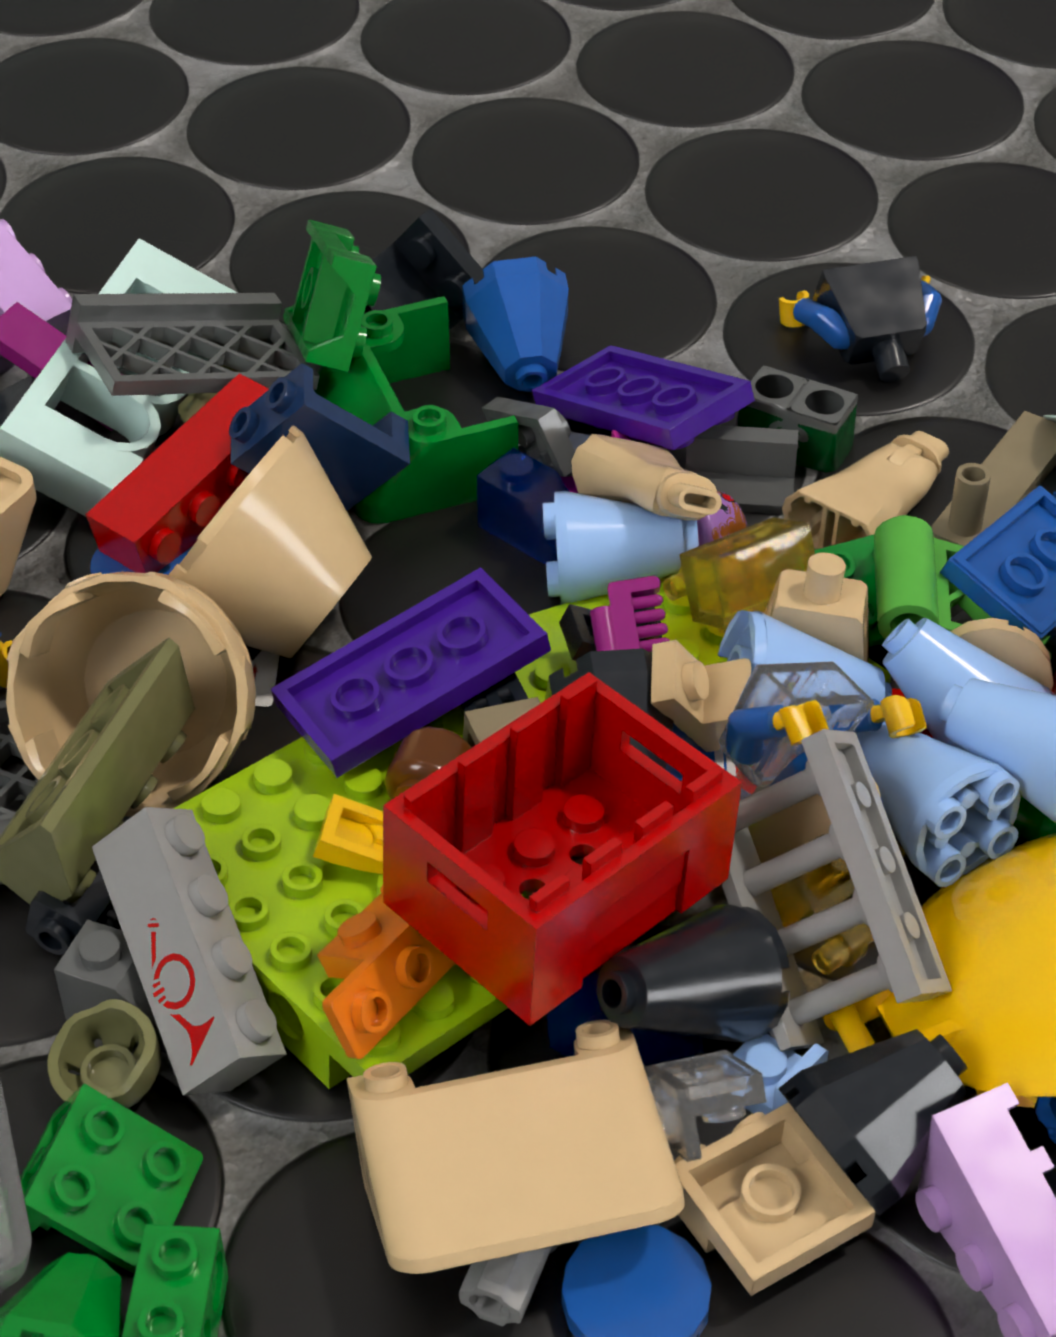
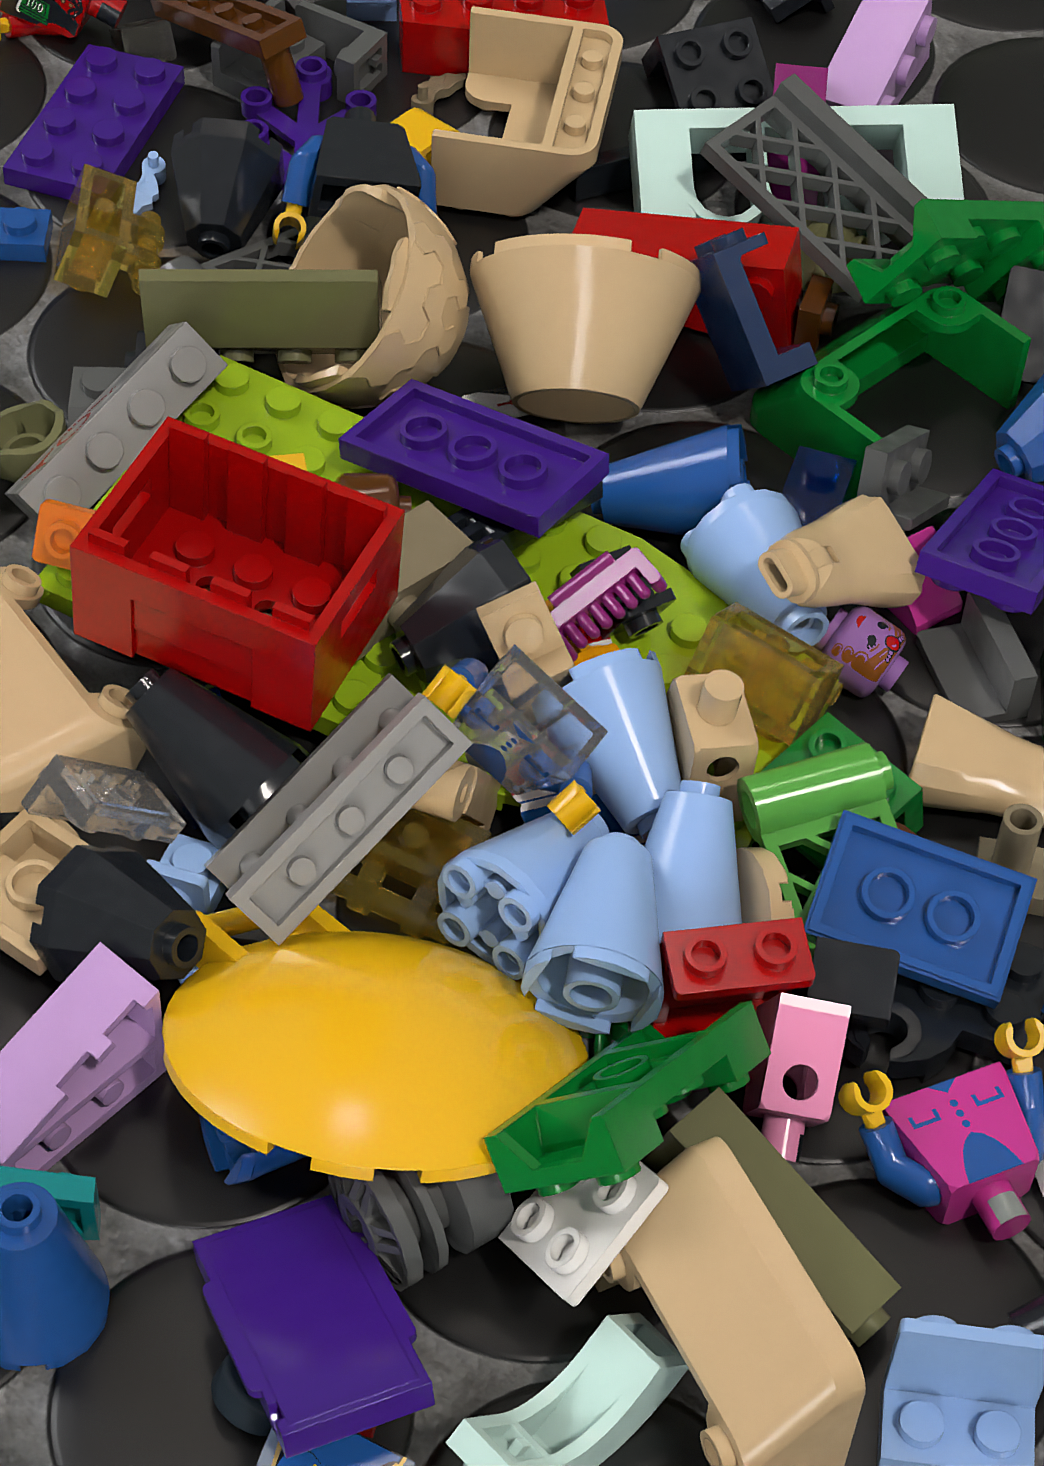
camera: 65 degrees right, 5 degrees up
(475, 534) = (674, 483): none -> blue cone

